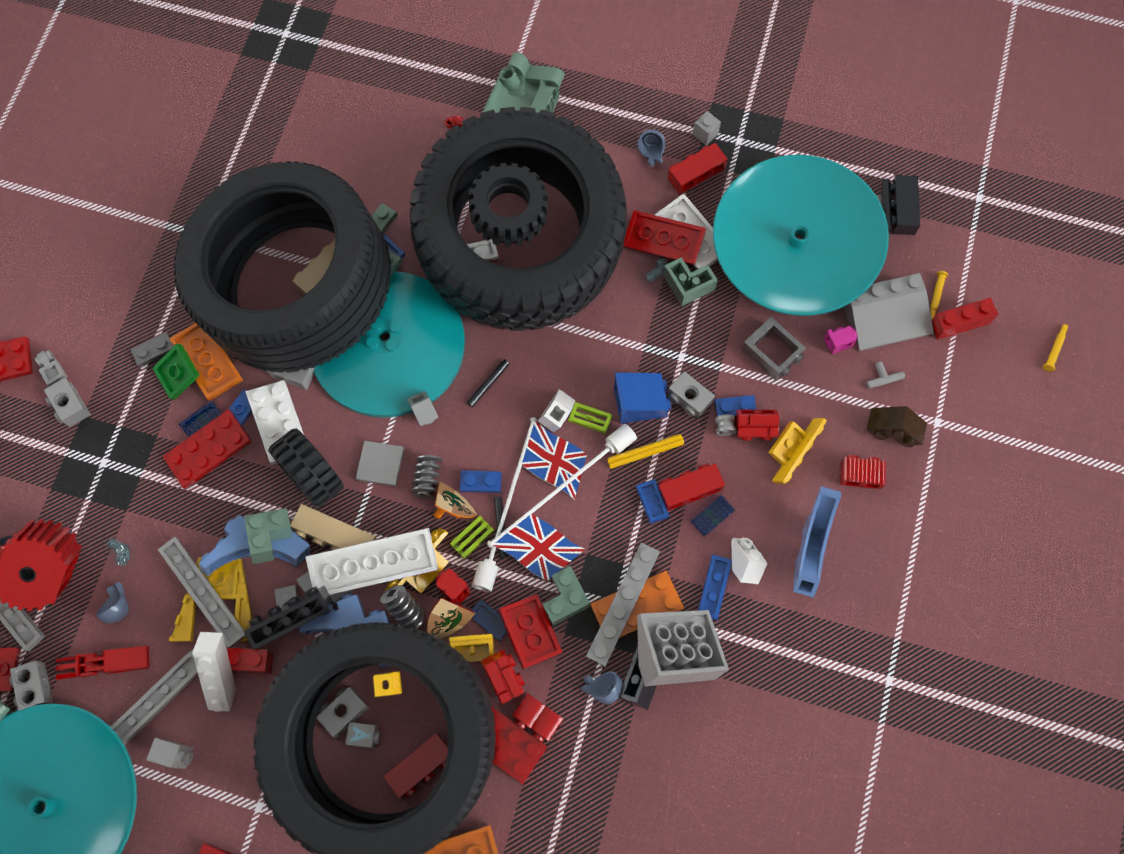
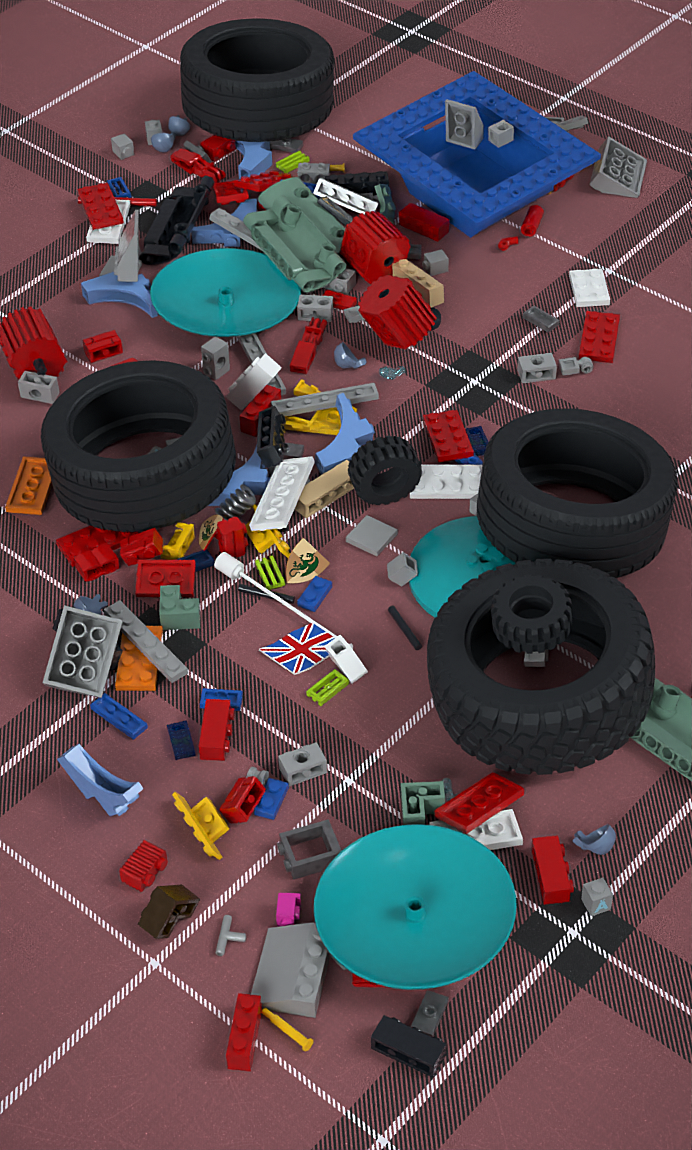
camera: 115 degrees right, 25 degrees down
(263, 529) = (343, 431): sand green brick -> none
(394, 684) = (163, 426): yellow piece -> none
(424, 476) = (340, 556): flat silver piece -> none
(539, 544) = (234, 610): flag -> none
(640, 396) = (322, 718): blue slope -> none
(645, 451) = (271, 714): yellow axle -> none
(747, 561) = (124, 740): white slope -> none
(887, 202) = (389, 1012): black bar -> none
(1049, 365) = (147, 1094): yellow piece -> none

